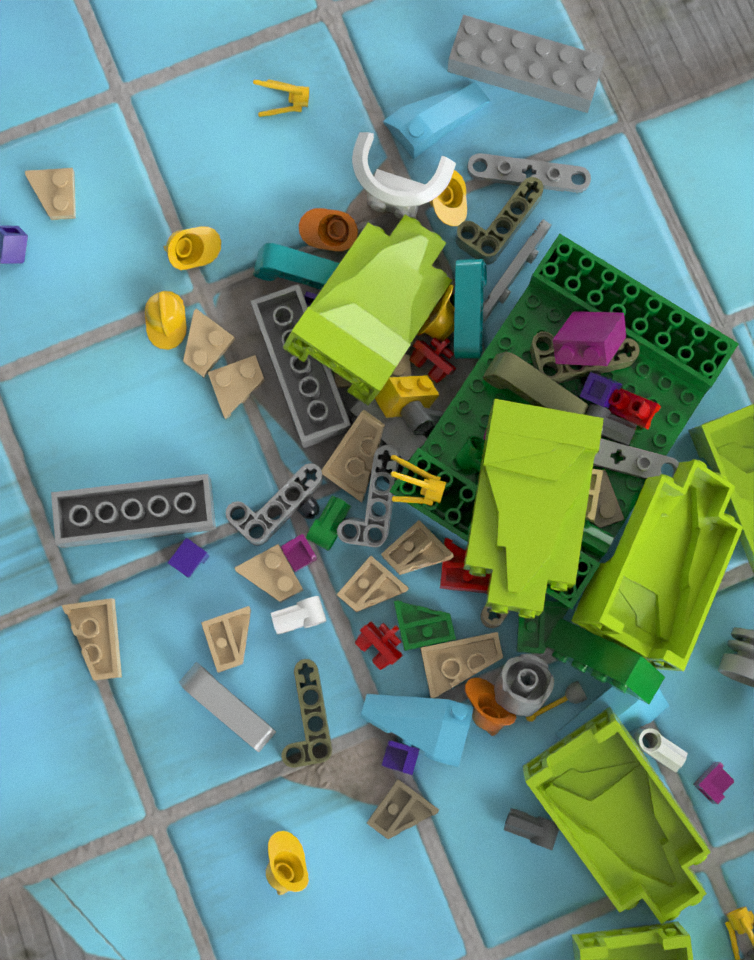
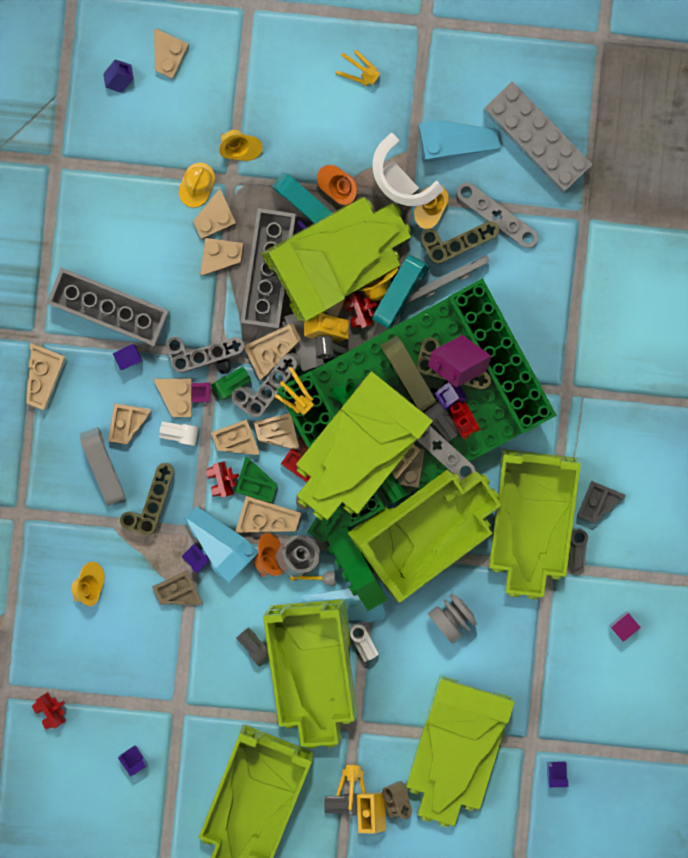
camera: 25 degrees right, 10 degrees up
(714, 783) = (386, 681): magenta panel -> none

